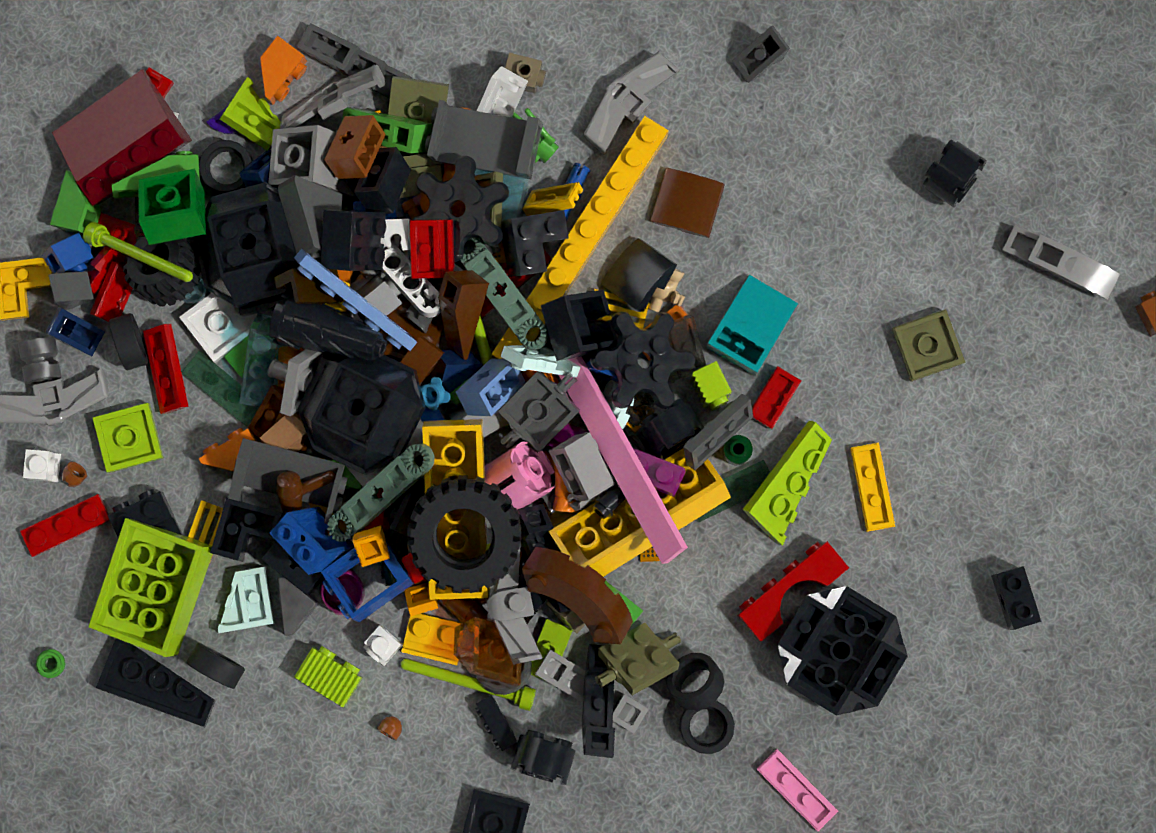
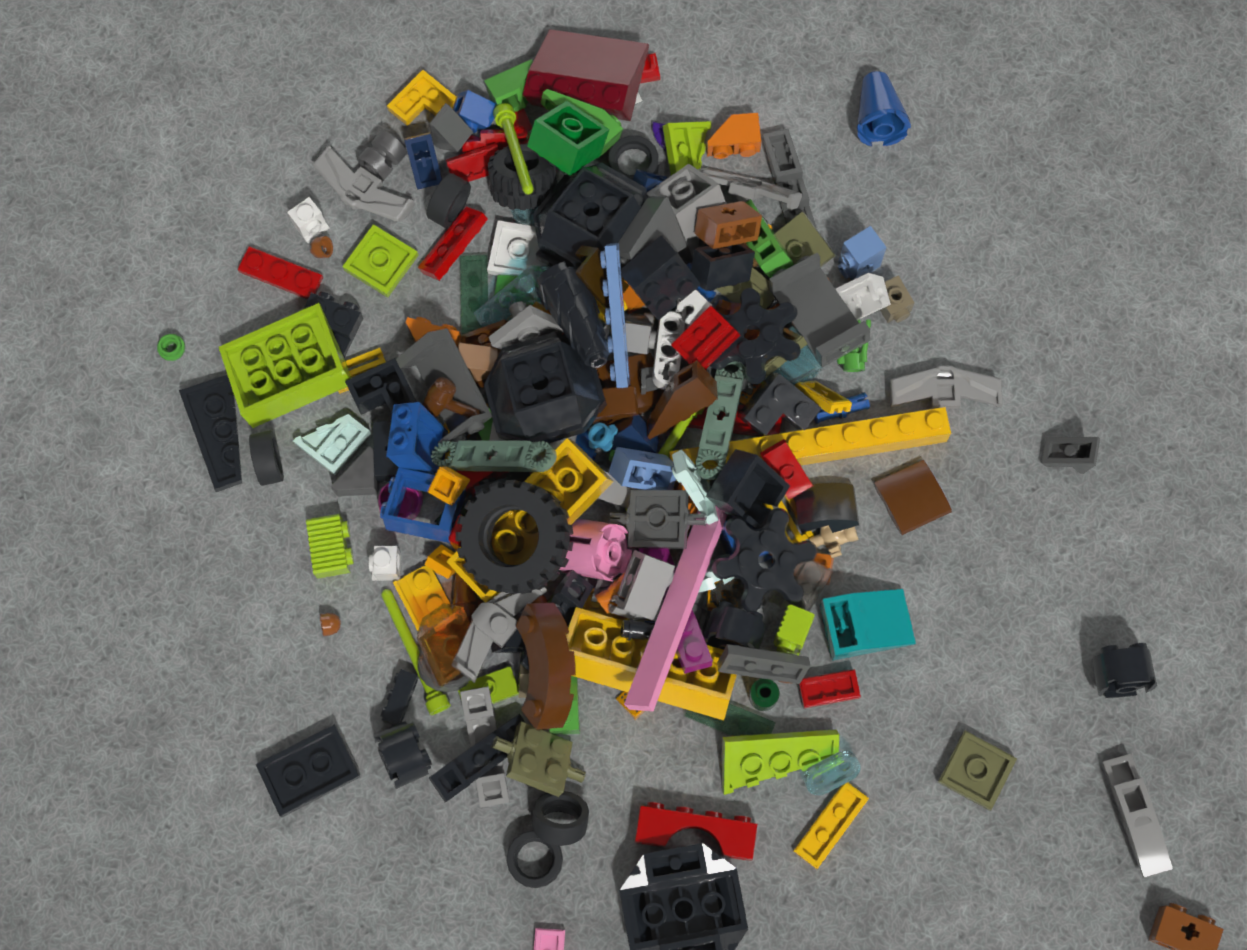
camera: 50 degrees right, 10 degrees down
(467, 65) = (861, 254): none -> medium blue brick
(584, 278) = (787, 466): none -> red plate
(837, 452) = (832, 773): none -> clear light blue plate

